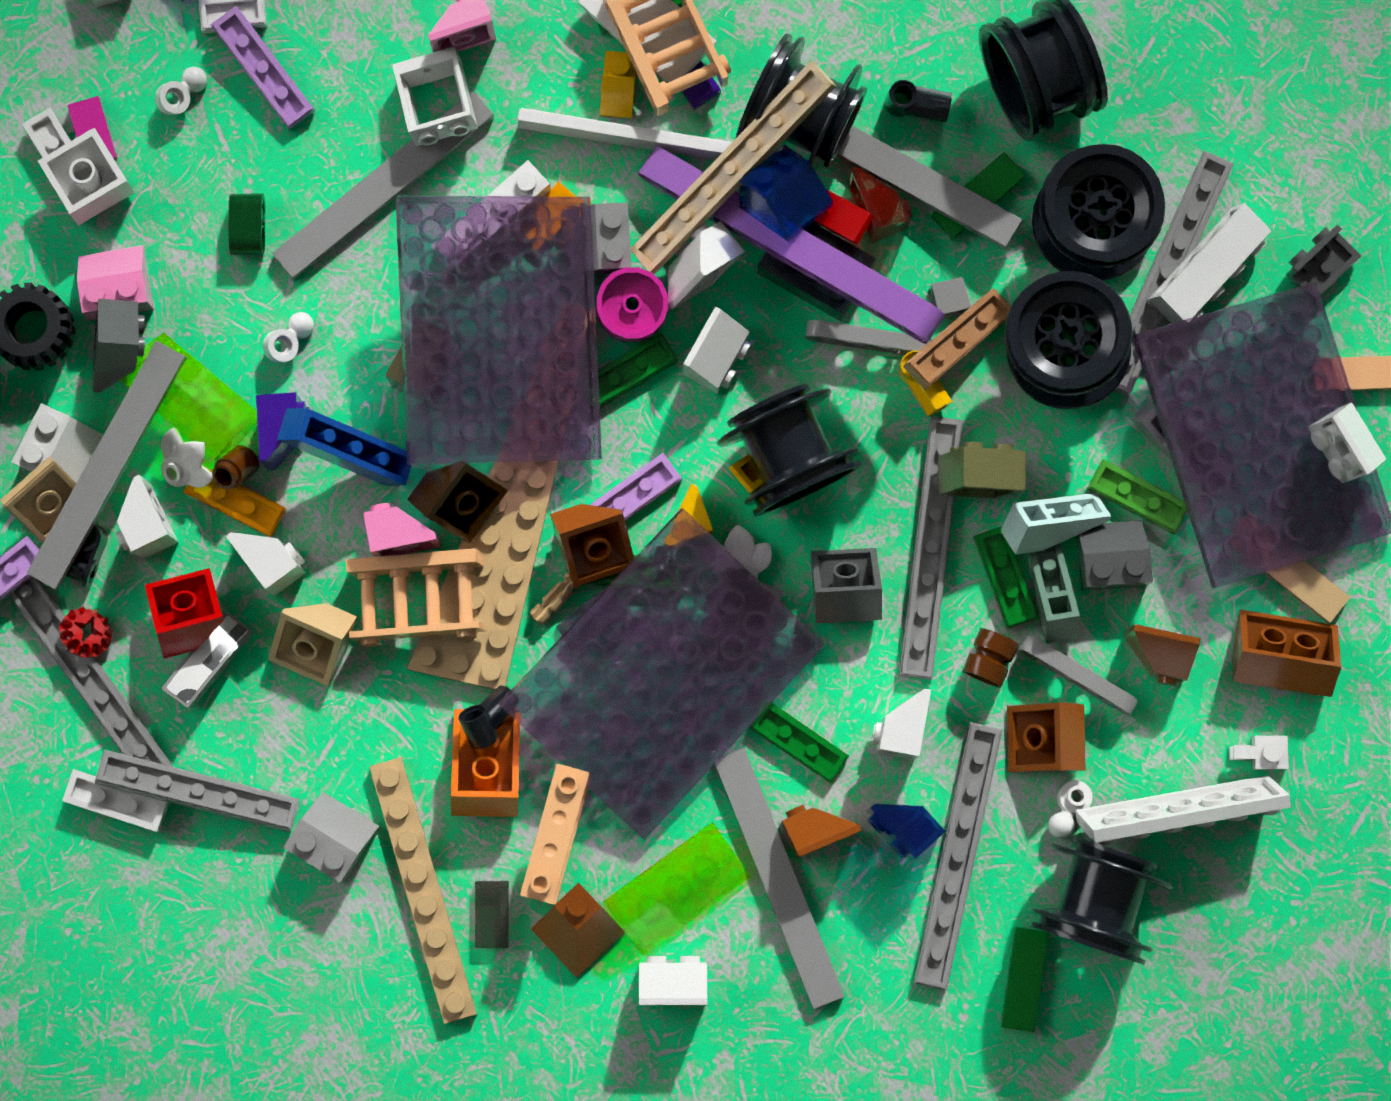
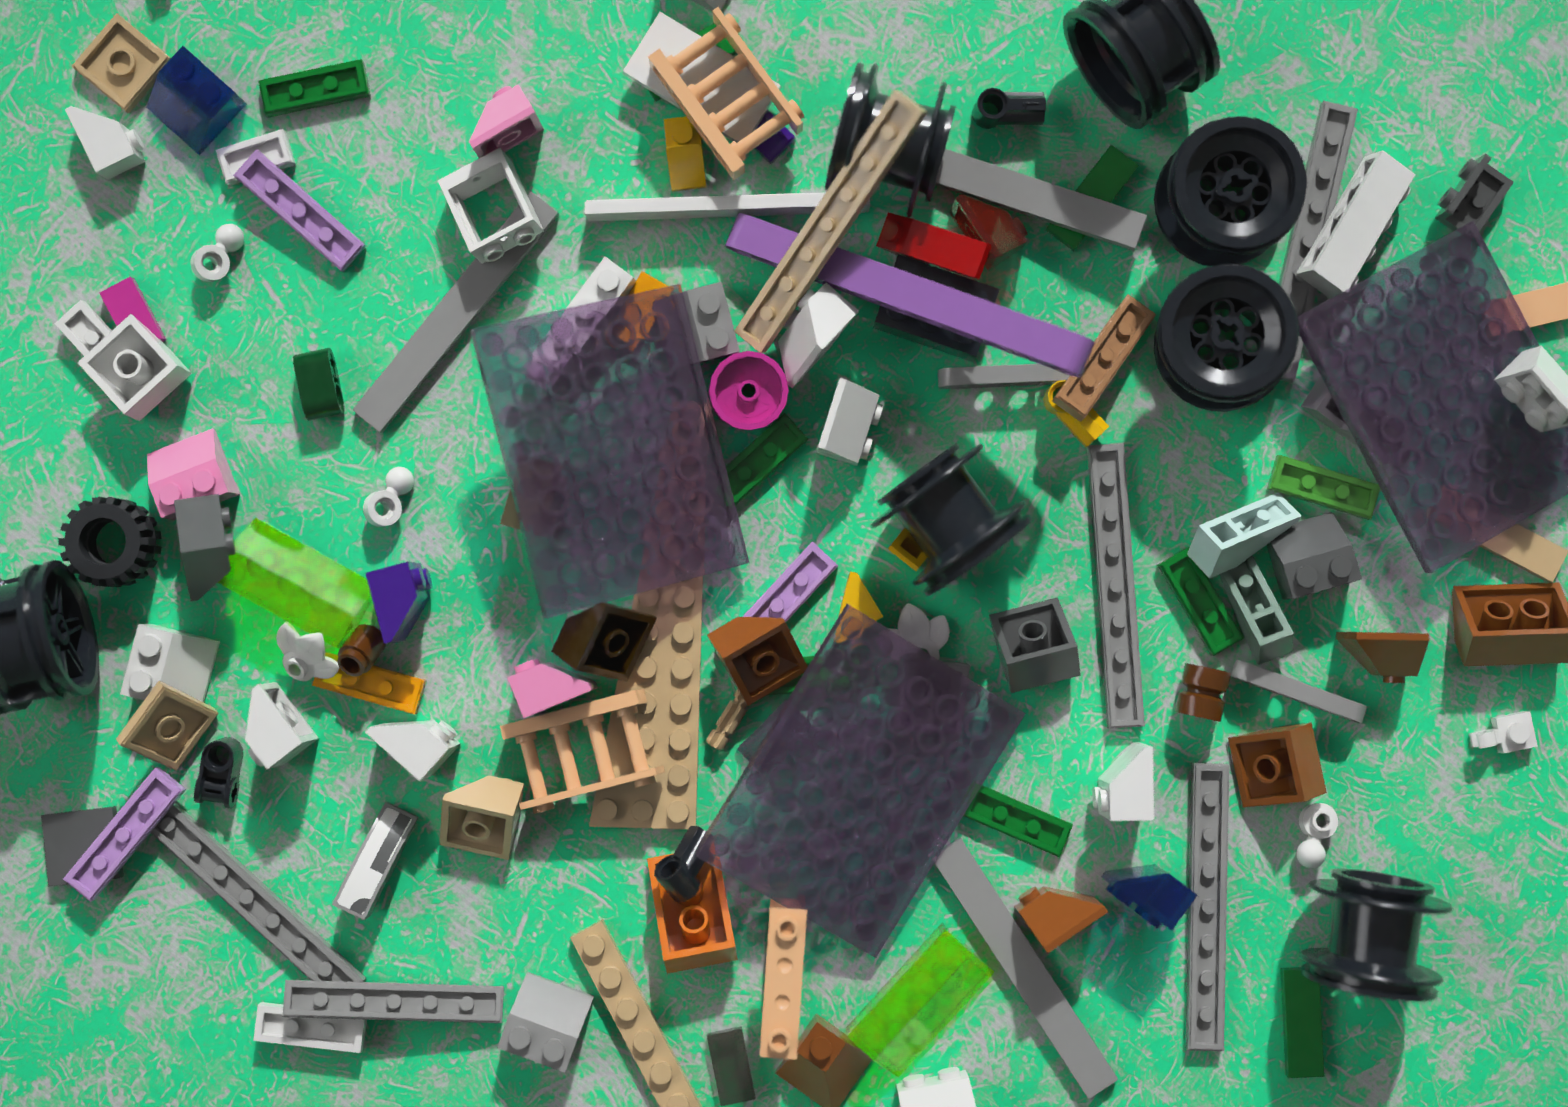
camera: 10 degrees left, 5 degrees up
(72, 635) = (225, 864): red gear -> none
(106, 465) = (222, 677): light grey tile -> none
(184, 611) = (338, 817): red slope -> none
(344, 446) = (471, 608): blue brick -> none
(784, 193) = (891, 240): clear blue slope -> none
(950, 296) = (1084, 312): light grey tile -> none
(982, 471) = (1157, 496): olive brick -> none
(1183, 808) = (1440, 816): white plate -> none

